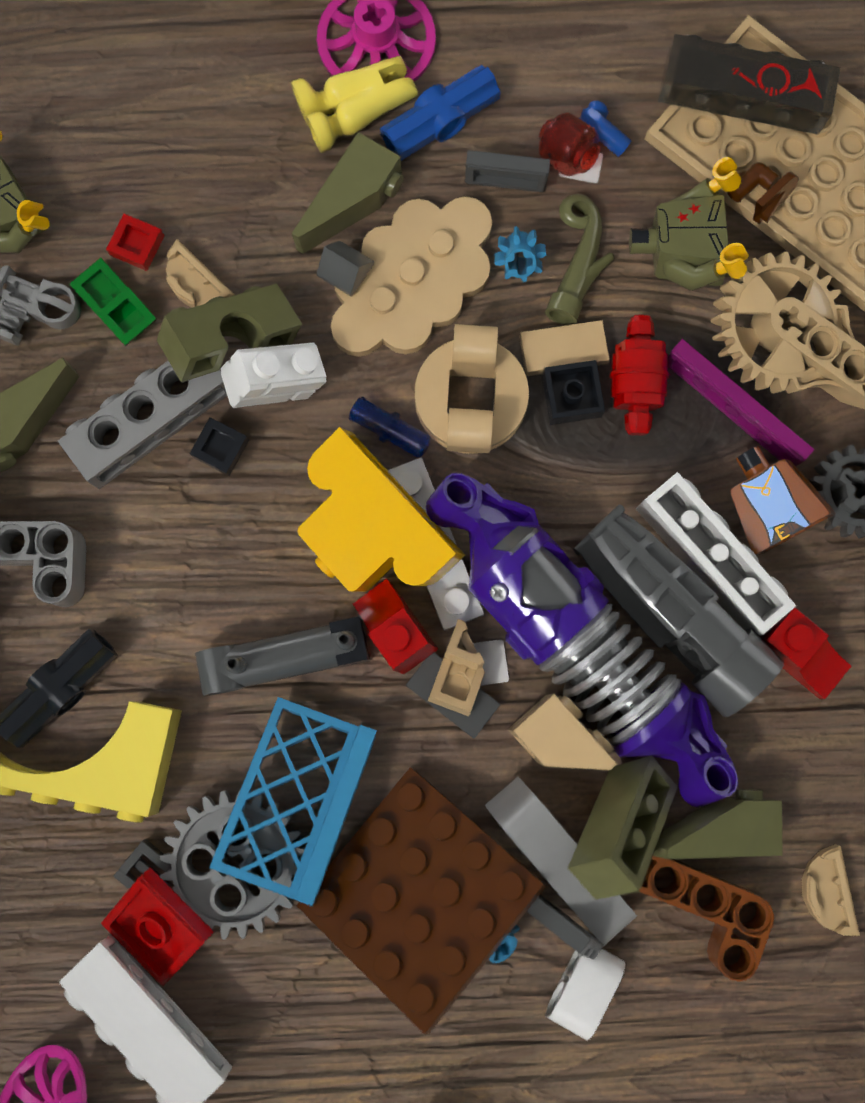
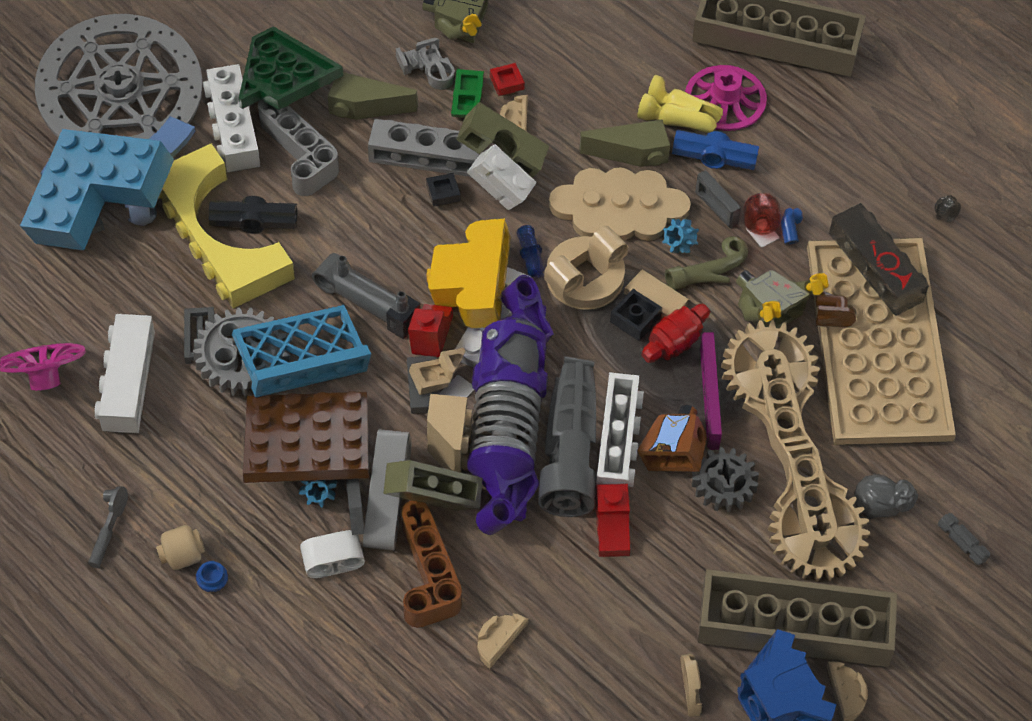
camera: 45 degrees right, 25 degrees down
(156, 927) = (179, 340): red tile -> none
(343, 267) = (589, 167): dark grey slope -> none
(726, 828) = (480, 546): olive slope -> none

